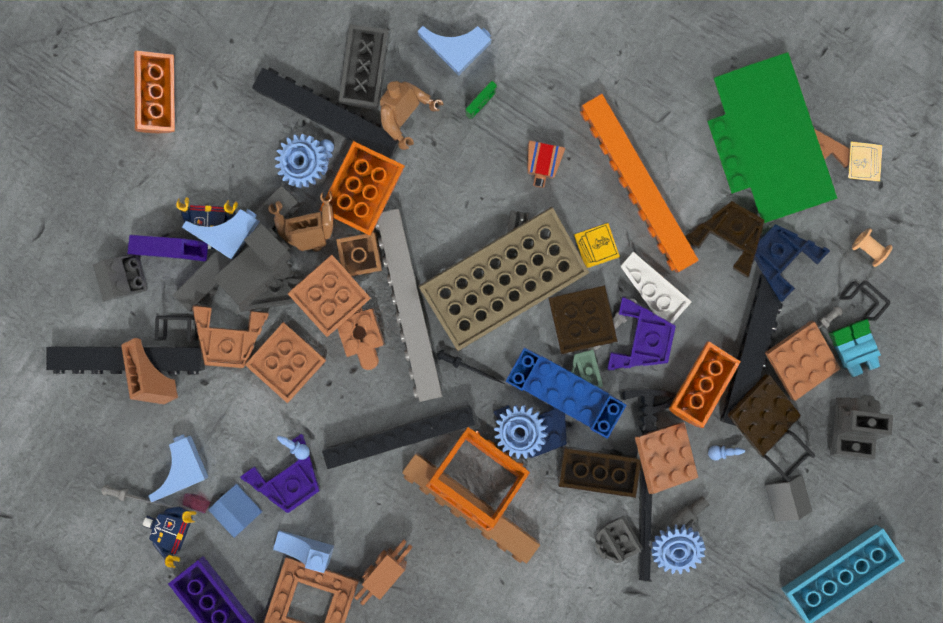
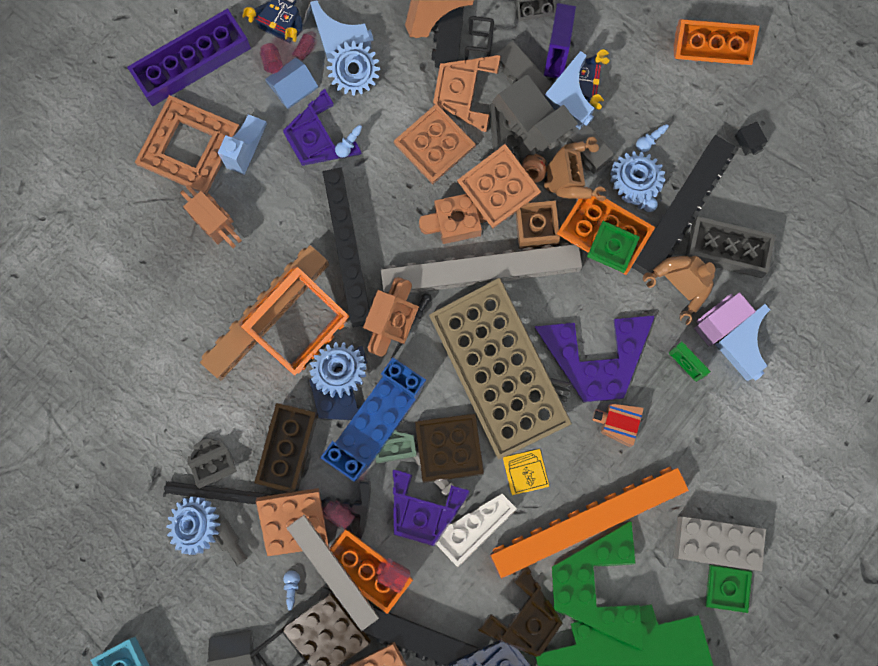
camera: 95 degrees right, 10 degrees down
(205, 456) = (362, 59): none -> light blue gear
(213, 534) = (270, 58): none -> clear pink brick
(251, 51) = (751, 139): none -> black brick
(264, 155) = (644, 143): none -> light blue bar
(302, 262) = (535, 167): none -> nougat head
(378, 180) = (613, 246): none -> green tile
(438, 69) = (723, 318): none -> lavender brick
(466, 387) = (390, 317): none -> nougat brick
(502, 182) = (600, 378): none -> dark purple wing
(647, 62) = (719, 543): none -> light grey brick
(656, 416) = (338, 514): none -> clear pink brick
(685, 51) = (728, 588): none -> green tile
(698, 191) = (576, 592): none -> green wing
(708, 360) = (393, 575): none -> clear pink brick
(710, 415) = (332, 572): none -> light grey tile

